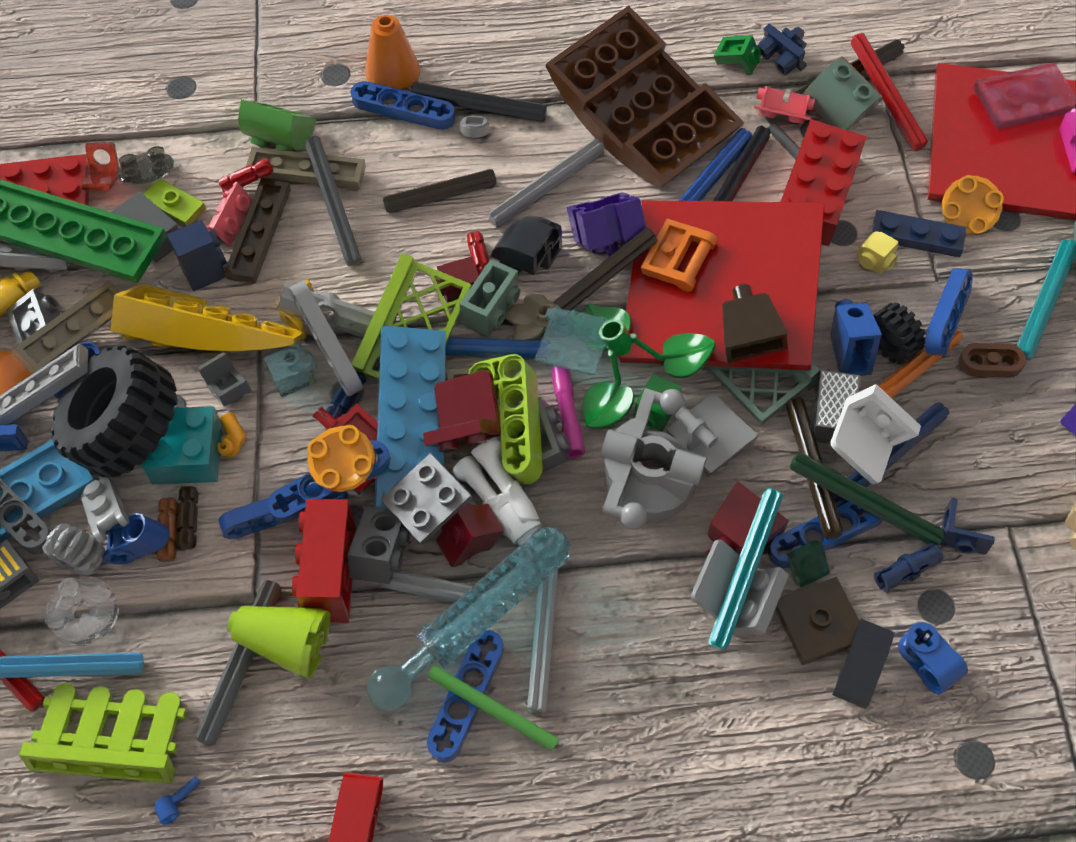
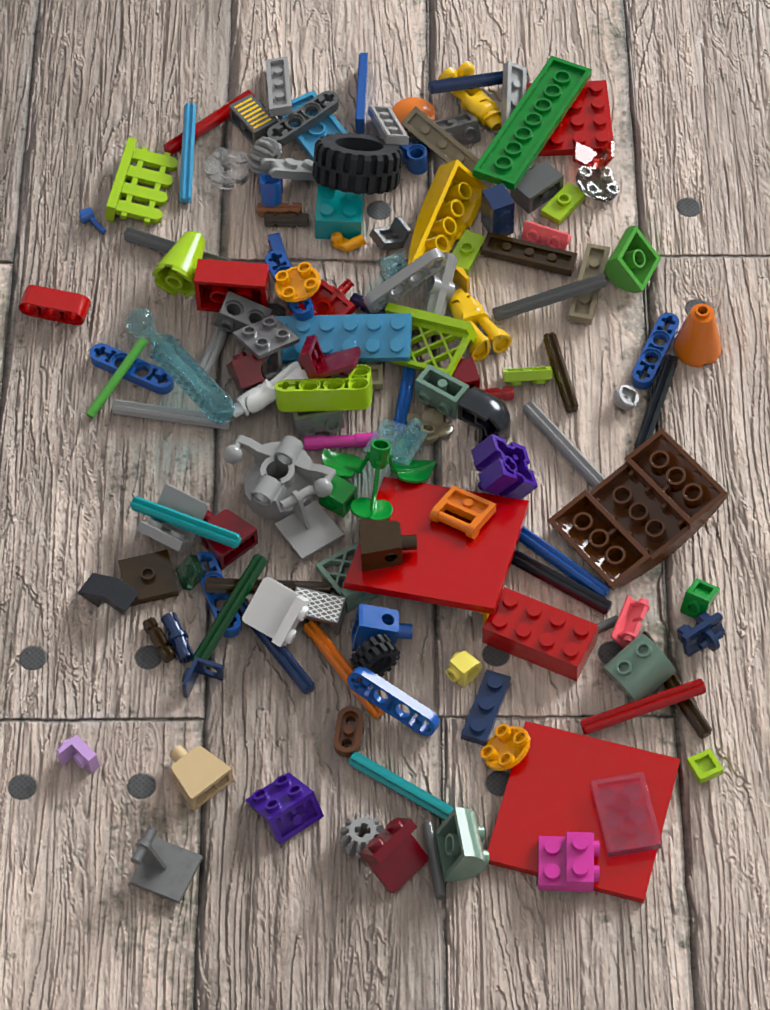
camera: 95 degrees right, 5 degrees down
(247, 175) = (580, 243): red axle -> none
(249, 298) = (468, 249): none -> lime plate
(357, 283) = (469, 309): none -> yellow piece
(449, 219) = (537, 375): none -> lime plate
(607, 270) = (458, 468): dark brown axle -> none
(913, 592) = (159, 639): none -> dark brown axle
(933, 659) = (104, 637): blue piece -> none
(940, 43) = (704, 766): none -> lime plate

